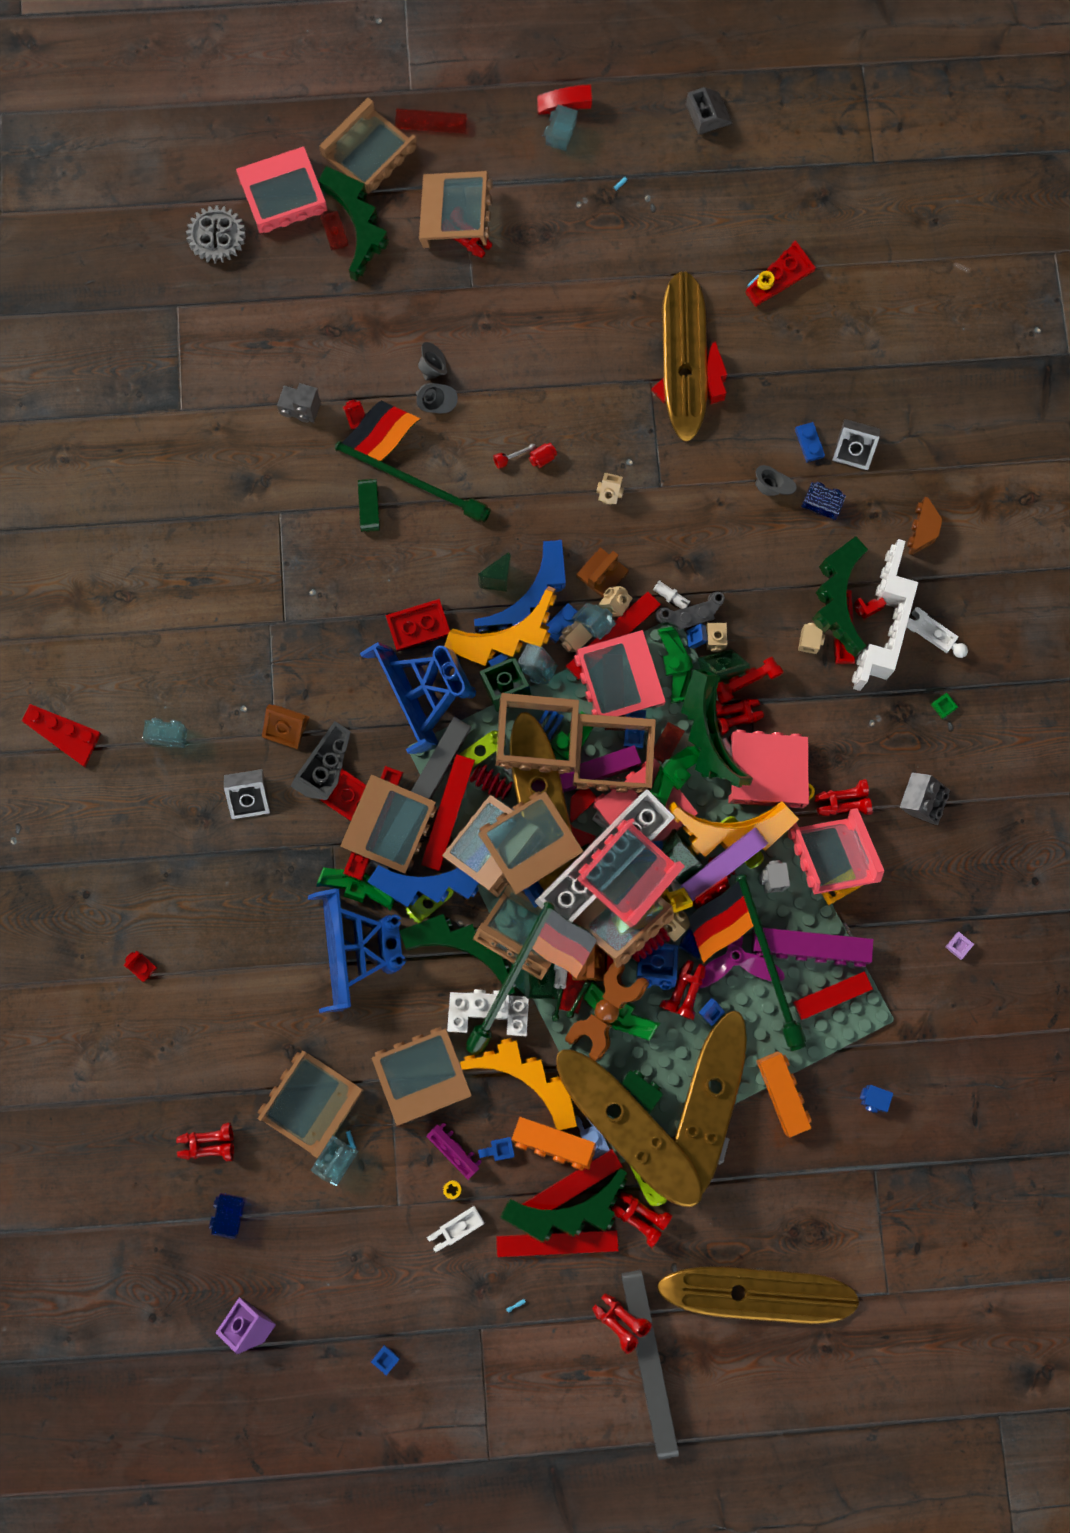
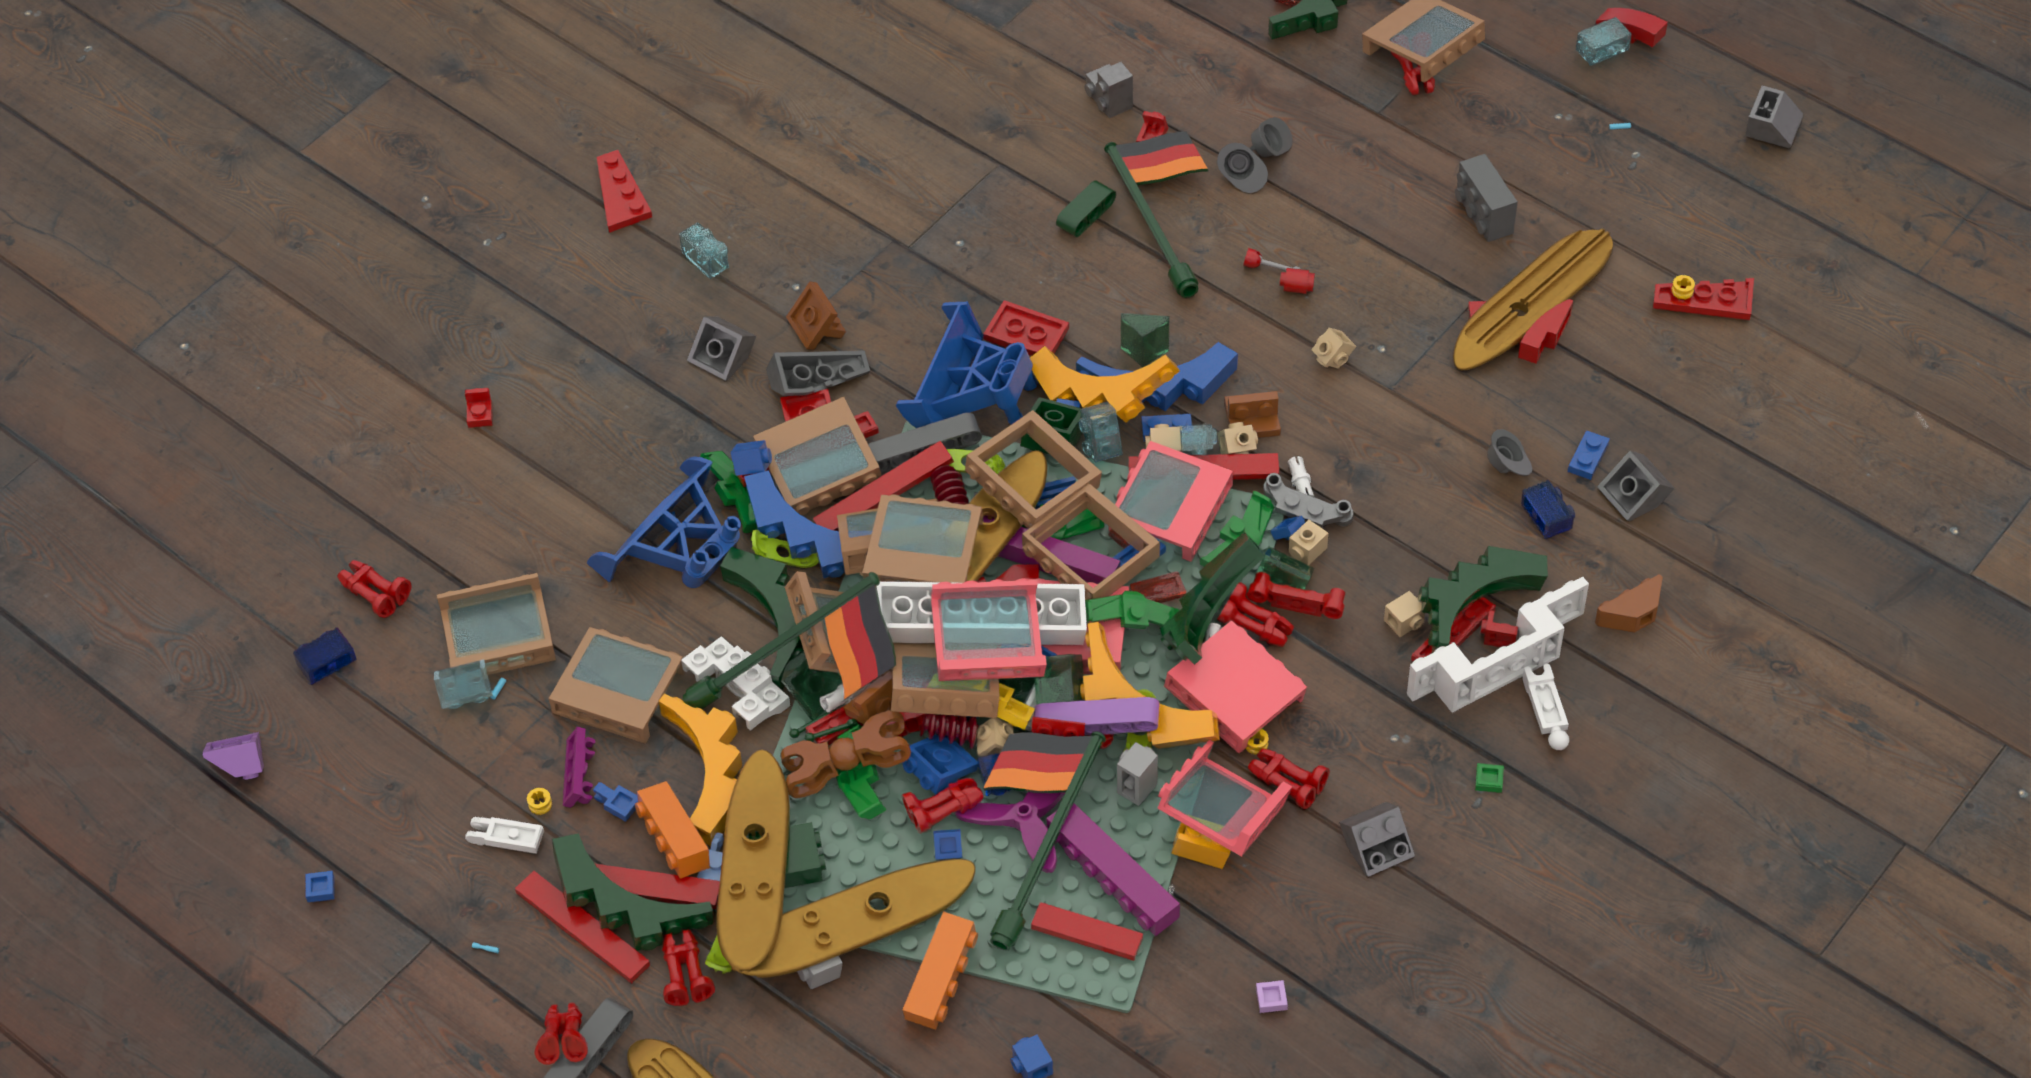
camera: 50 degrees right, 25 degrees down
(358, 864) = (751, 457): none -> blue brick
(601, 305) = (1486, 198): none -> dark grey brick

